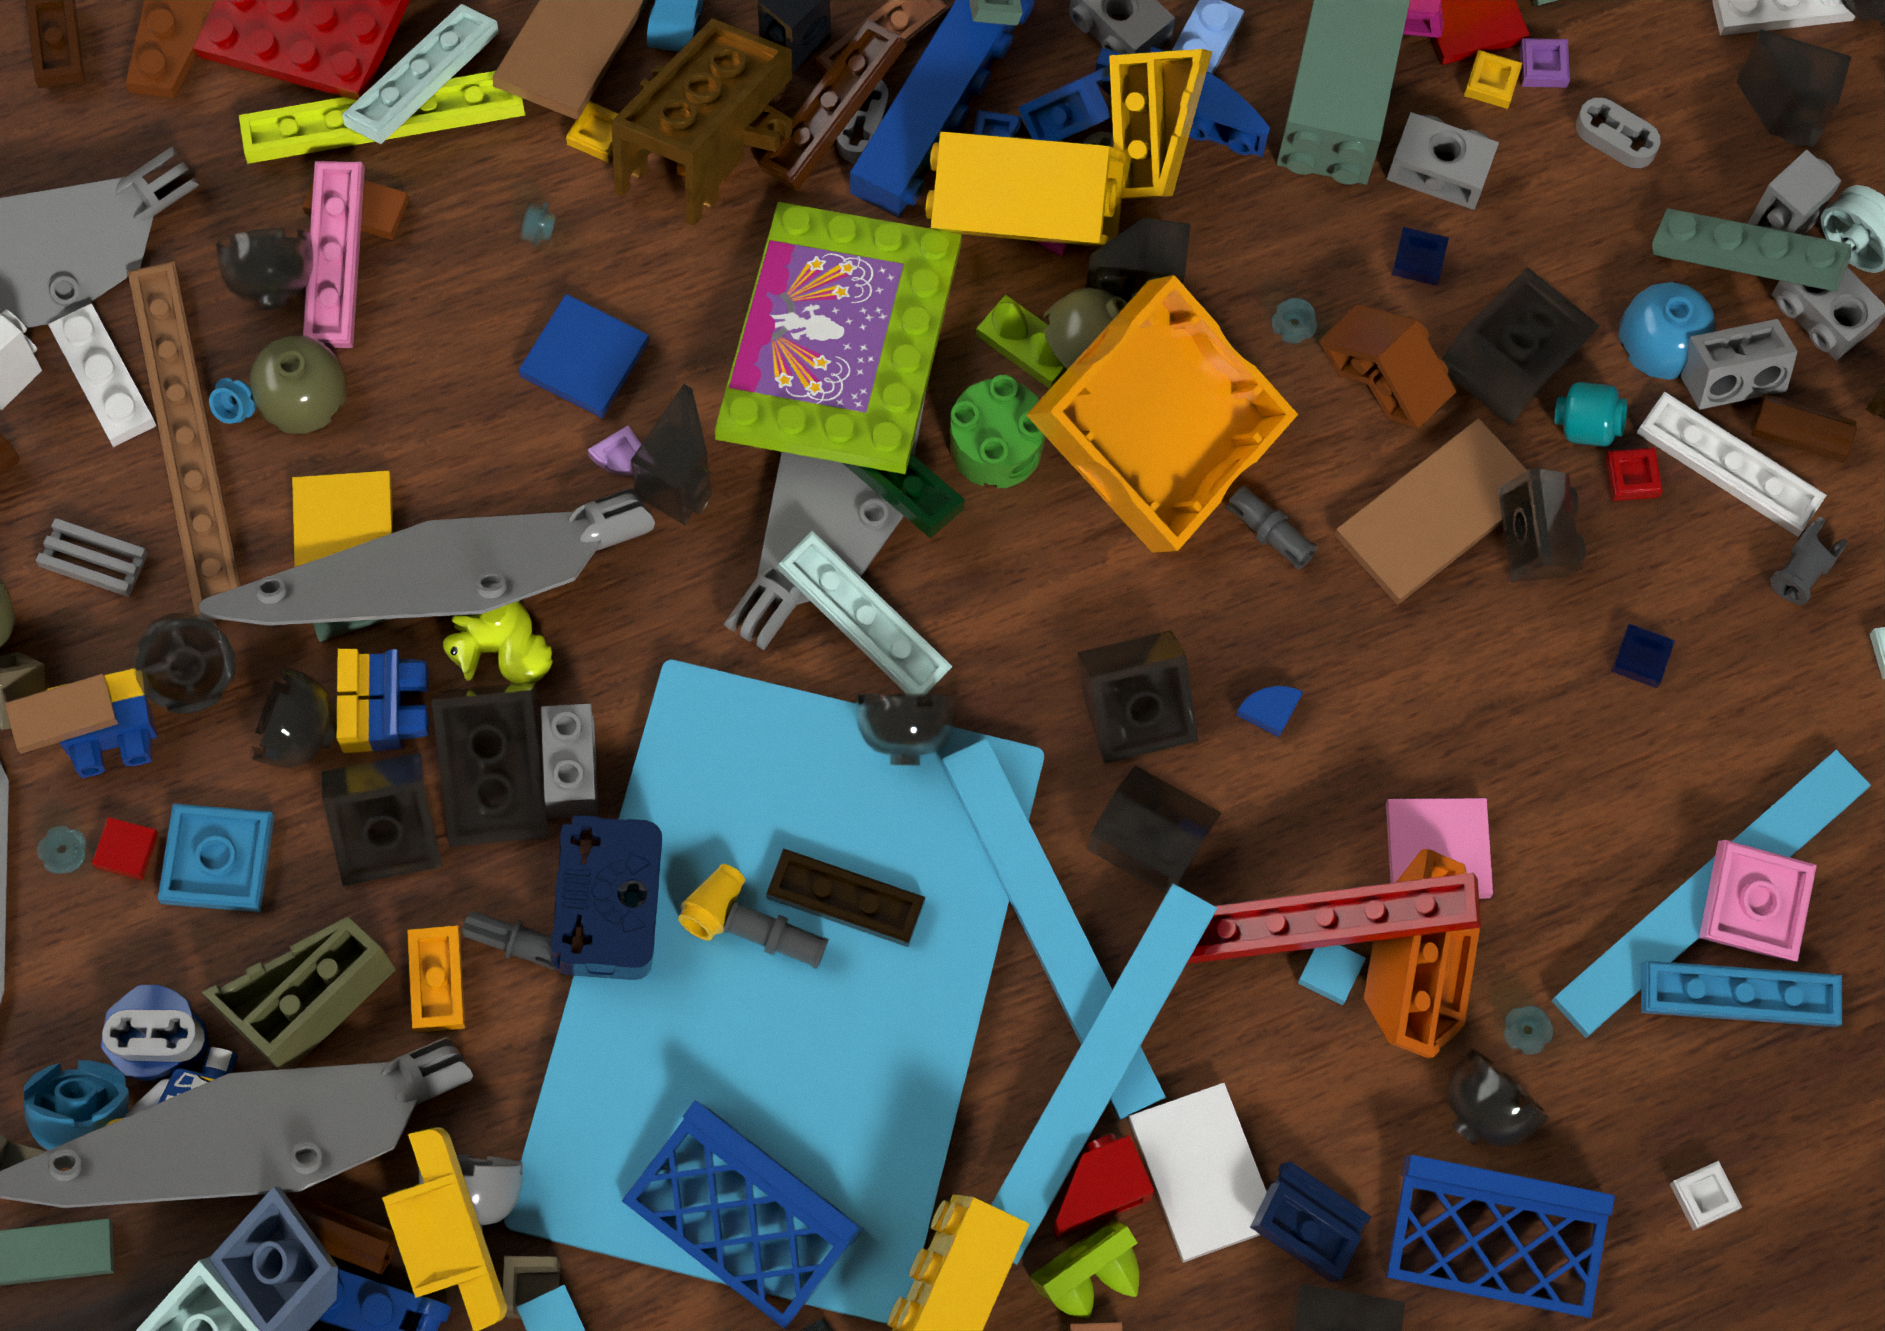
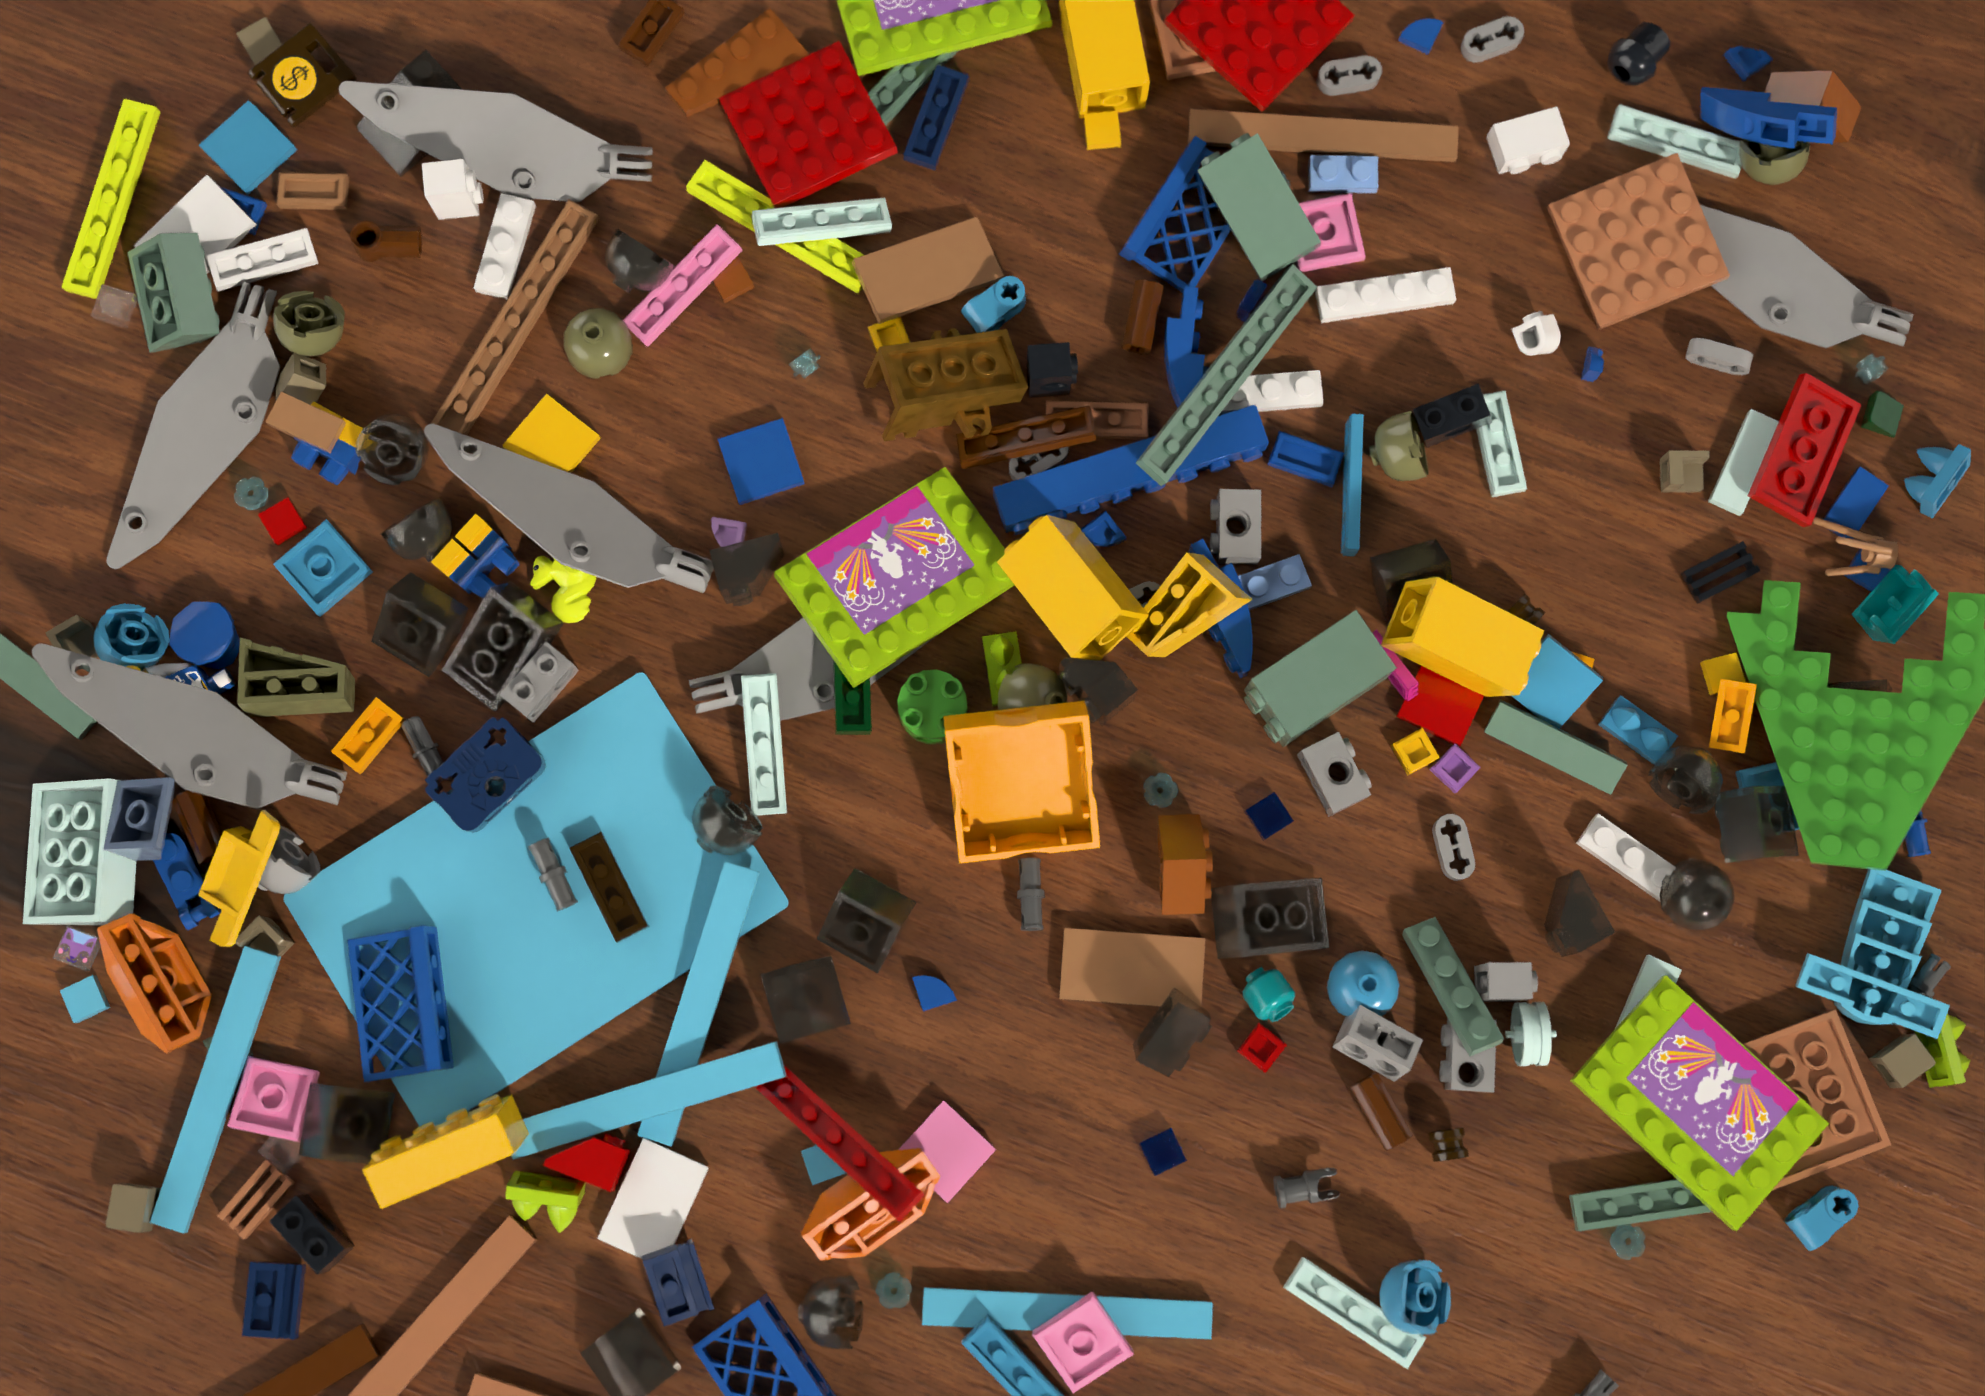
camera: 45 degrees right, 10 degrees up
(65, 529) = (395, 321): light grey tile -> none
(153, 1024) = (202, 633): light grey beam -> none
(225, 407) = (553, 322): dark azure plate -> none
(710, 904) = (537, 826): yellow cone -> none
(1067, 108) = (1148, 555): blue panel -> none
(1731, 464) = (1322, 1093): white tile -> none

